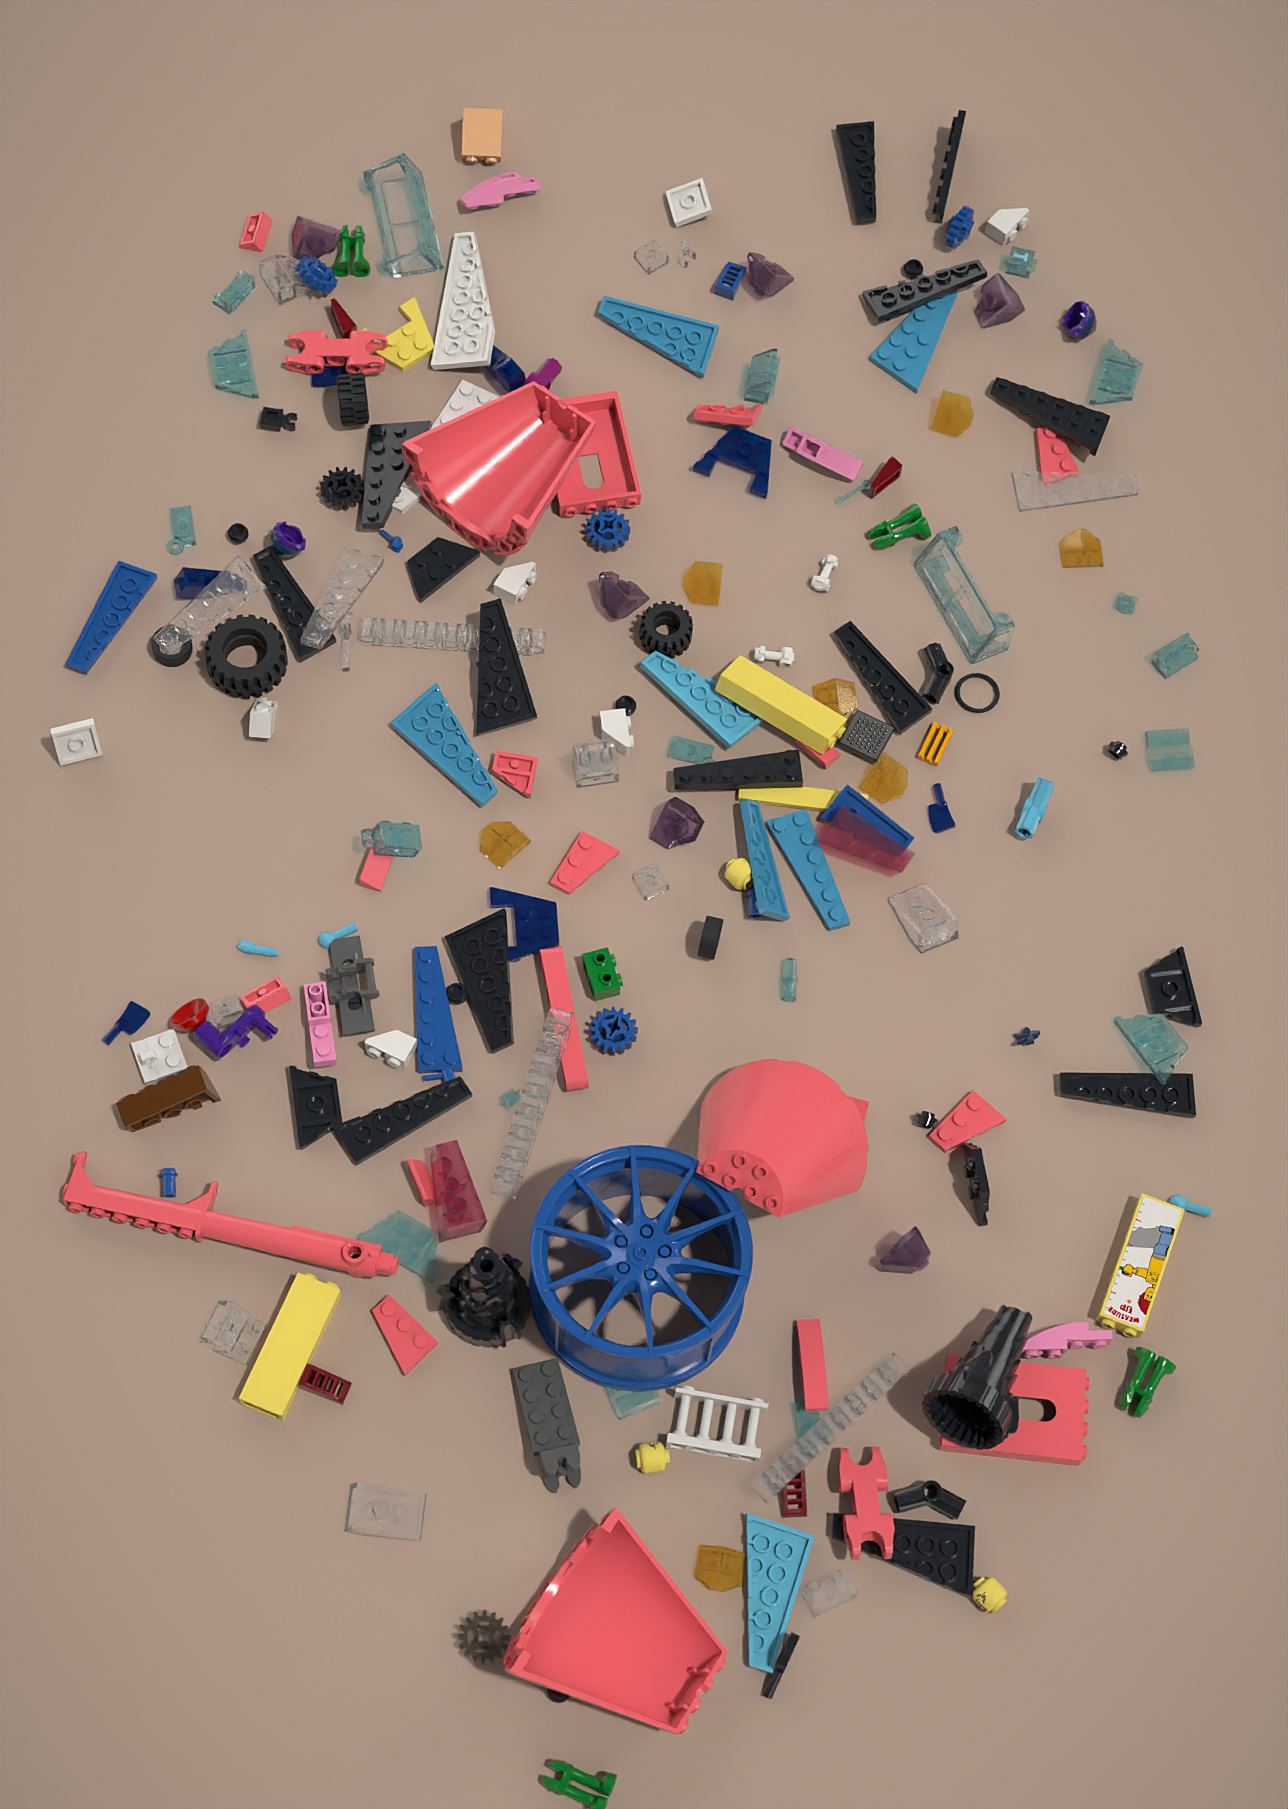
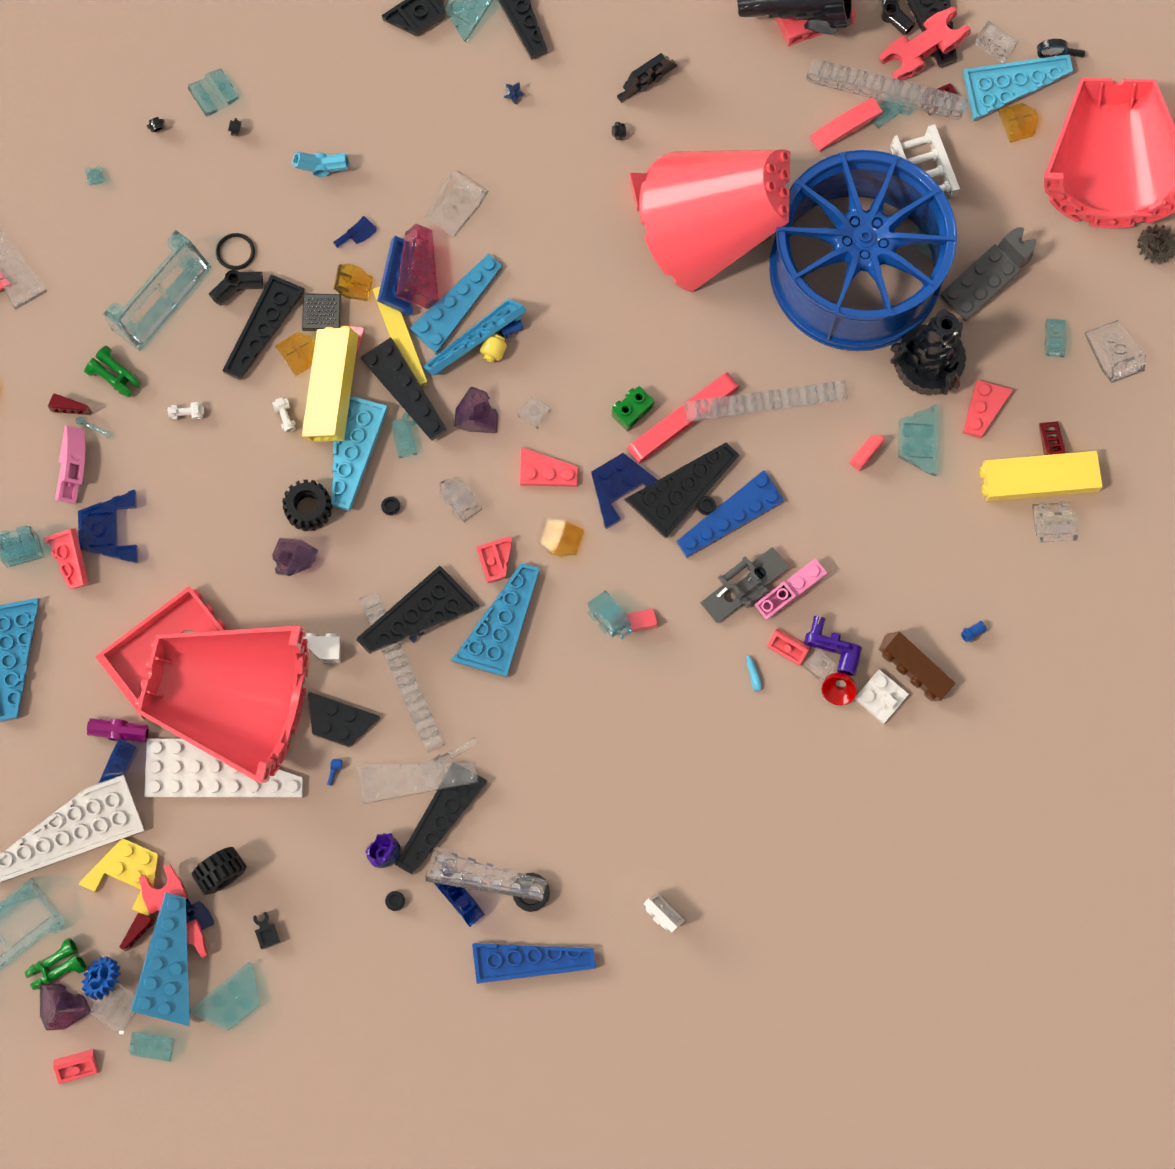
camera: 115 degrees left, 10 degrees up
(130, 1022) = (867, 736): clear blue piece -> none
(182, 529) = (414, 950): clear light blue hinge -> none
(199, 1221) = (991, 589): coral piece -> none
(244, 632) = (504, 796): black tyre -> none
(262, 718) = (557, 779): white slope -> none
(288, 319) = (164, 976): none -> dark azure wing
(315, 1105) = (853, 560): black wing -> none
(327, 937) = (714, 626): medium azure bar -> none
(342, 488) = (307, 828): black gear -> none
(385, 1126) = (838, 499): black wing -> none
(387, 468) = (257, 811): black wing -> none
(393, 1047) = (777, 527): white slope -> none
(438, 1455) = (1055, 338): none -> clear light blue slope
(446, 1075) = (775, 478): blue hand -> none
(456, 1199) = (869, 418): clear pink wedge -> none
(511, 1098) = (767, 422): clear light blue plate -> none
(607, 529) = (232, 607): blue gear -> none
(615, 726) = (417, 502): white slope -> none
(621, 1034) = (666, 378): blue gear -> none
(652, 1457) = (972, 197): light yellow head -> none
(703, 582) = (246, 499): clear yellow slope -> none
(710, 937) = (561, 341): black tyre -> none
(789, 980) = (560, 274): clear light blue axle -> none
(907, 1254) = (731, 99): clear purple slope -> none
(942, 729) = (300, 258): light orange tile -> none
(966, 1121) = (603, 105): coral wing -> none
(1081, 550) = (60, 230): clear yellow slope -> none
(1156, 679) = (156, 124): none -> black plate
(1175, 656) = (125, 120): clear light blue hinge -> none

